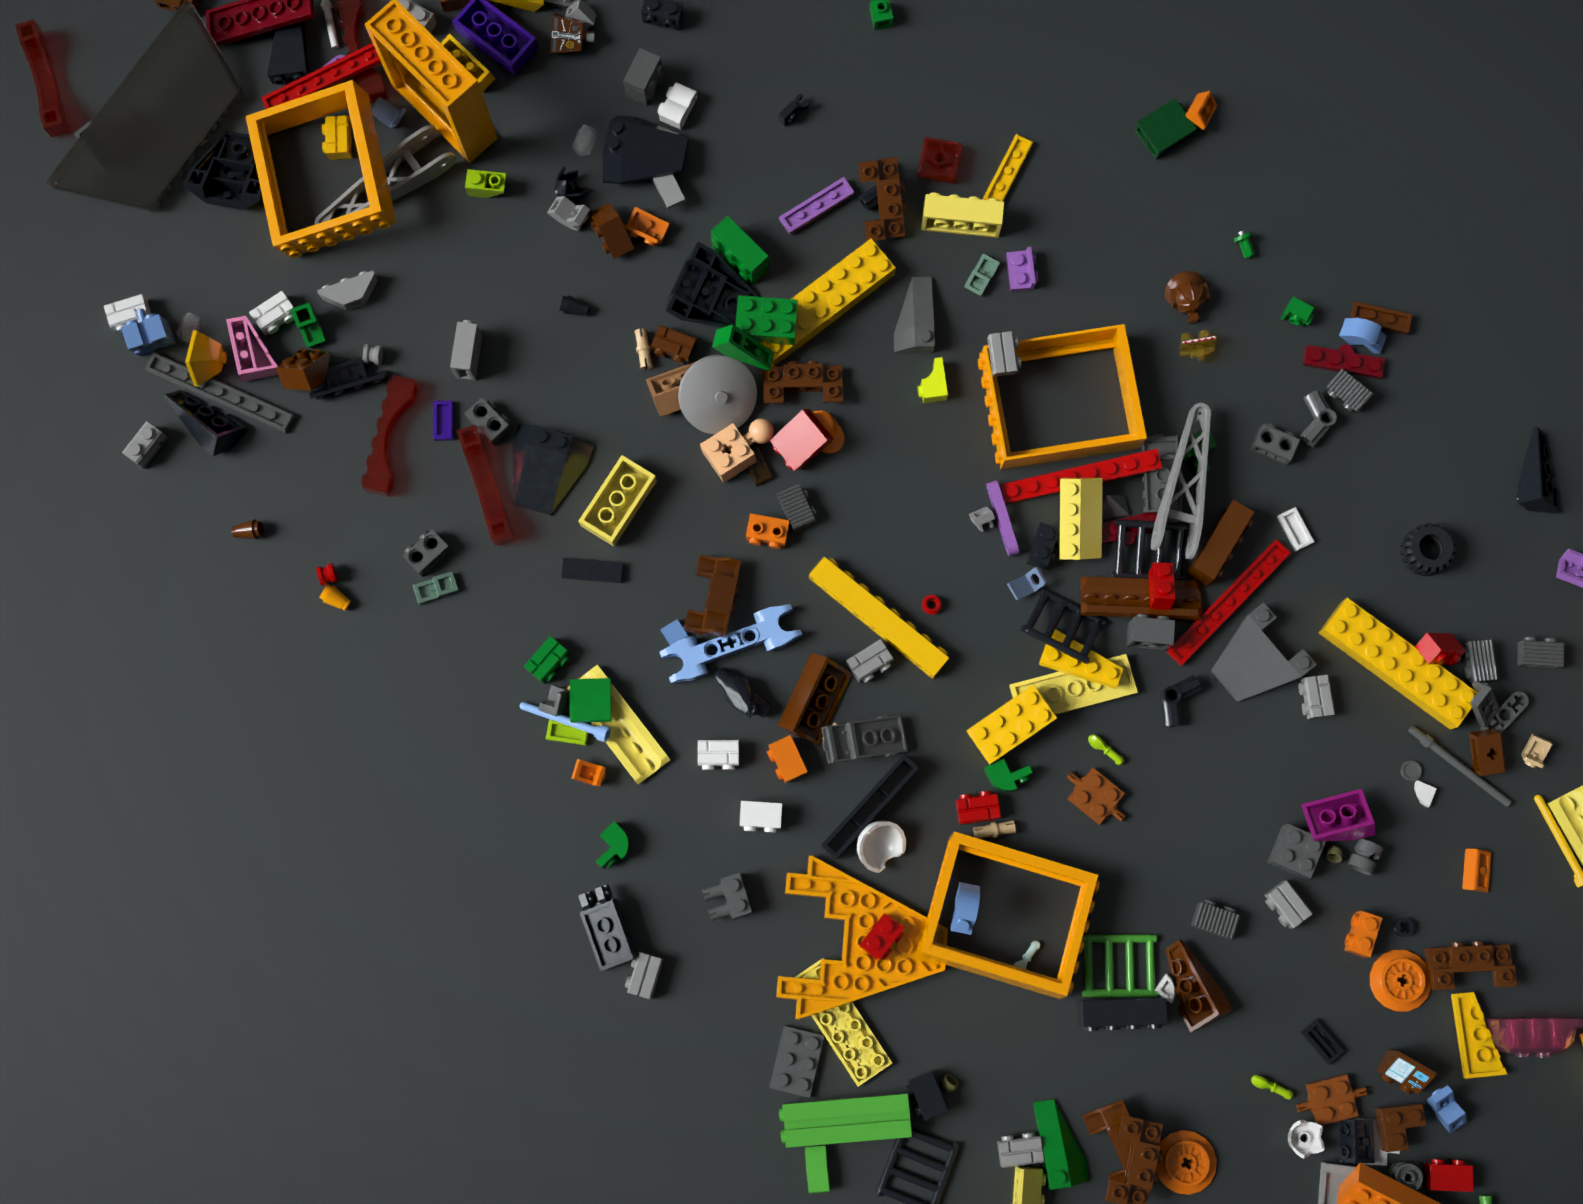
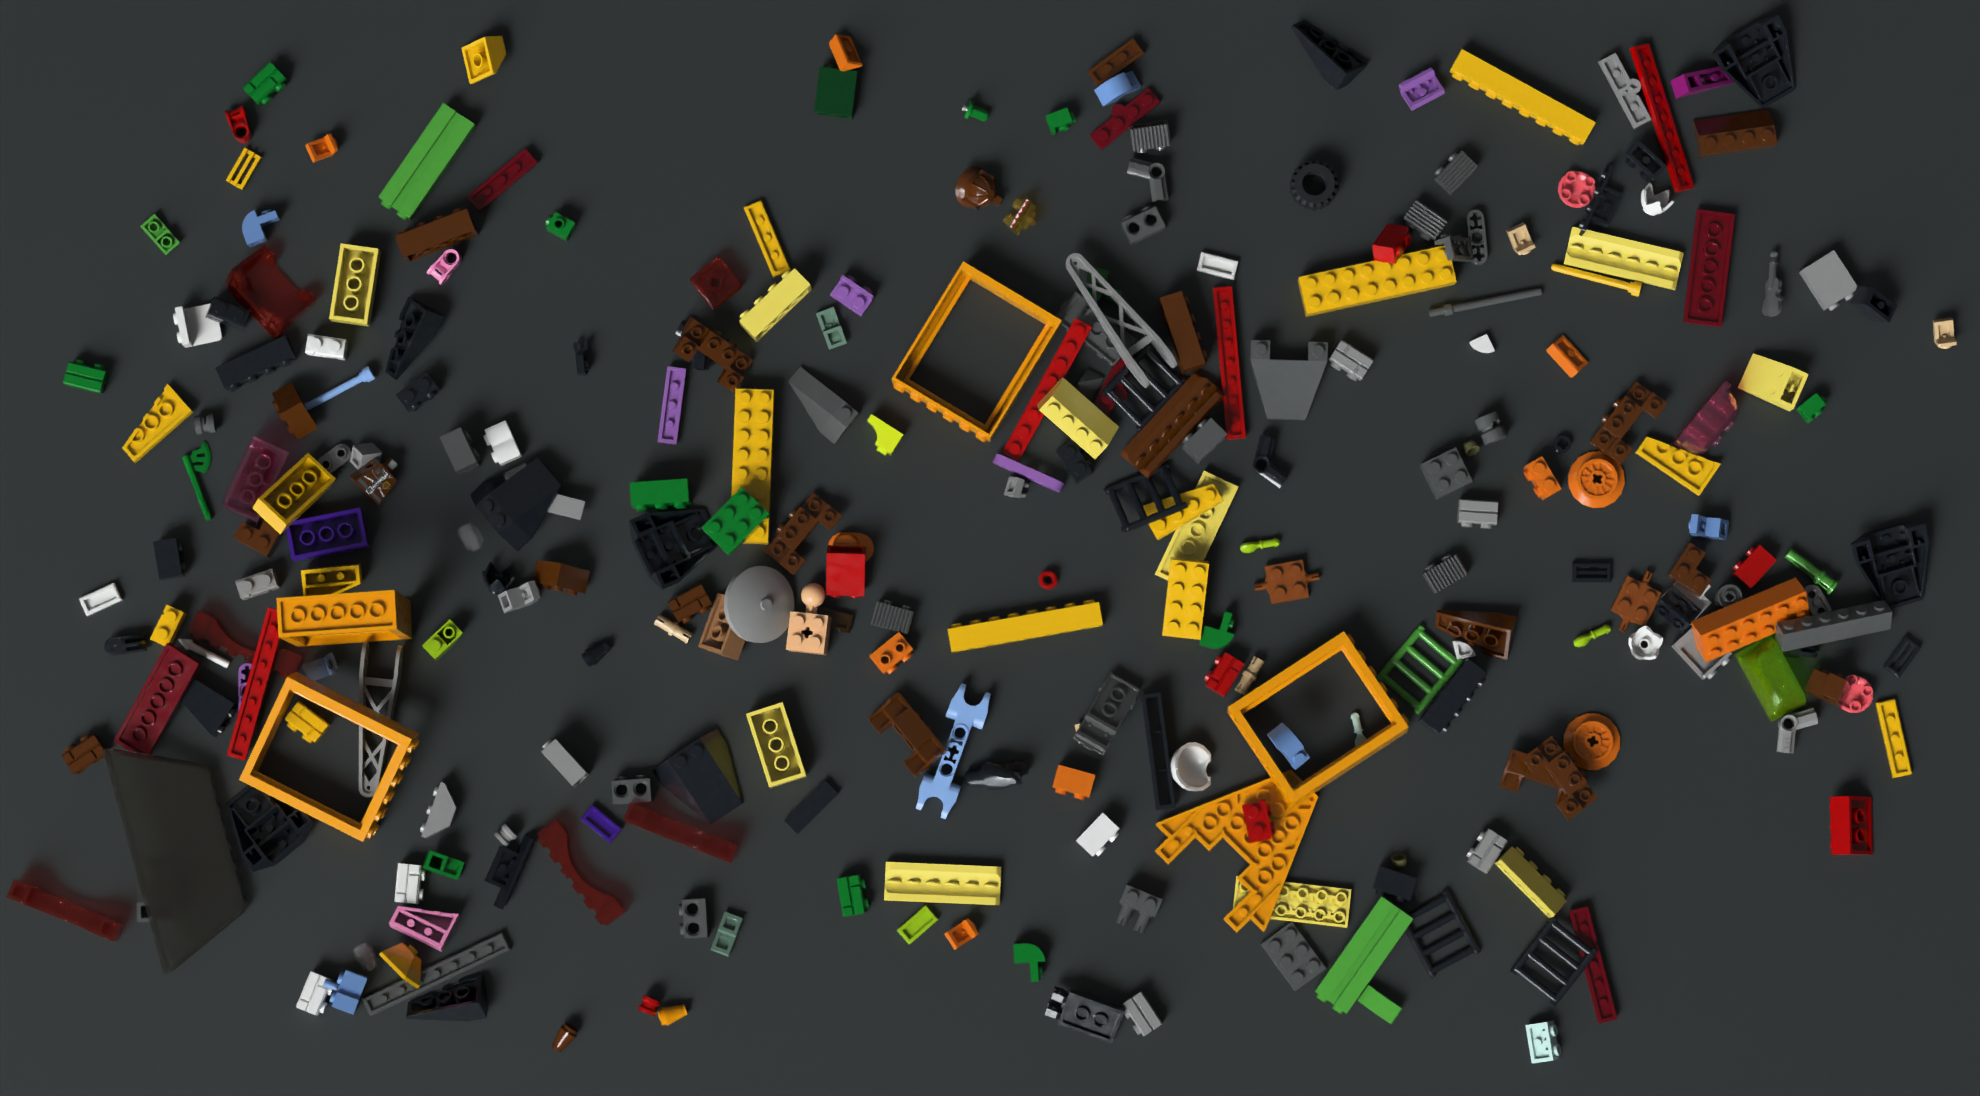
camera: 50 degrees left, 5 degrees up
(144, 445) = (432, 1062): light grey brick -> none
(304, 369) = (476, 895): reddish brown slope -> none
(556, 701) = (888, 914): dark grey panel -> none
(590, 700) = (910, 888): green slope -> none
(601, 732) = (939, 900): light blue piece -> none
(647, 226) = (580, 547): orange bracket -> none
(673, 632) = (909, 786): medium blue tile -> none
(718, 753) = (1026, 828): white brick -> none
(742, 347) = (743, 557): green slope -> none
(815, 698) = (1045, 724): reddish brown slope -> none
(869, 661) = (1051, 661): light grey brick -> none
(1003, 353) = (911, 371): light grey brick -> none
(1025, 584) = (1092, 498): sand blue bracket -> none
(1062, 1156) = (1512, 823): green wedge -> none
(1161, 586) = (1177, 403): red brick -> none
(1339, 817) = (1448, 423): magenta slope -> none
(1405, 1072) = (1659, 534): reddish brown slope -> none
(1411, 770) = (1459, 339): dark grey piece -> none
(1480, 745) = (1482, 274): reddish brown brick -> none

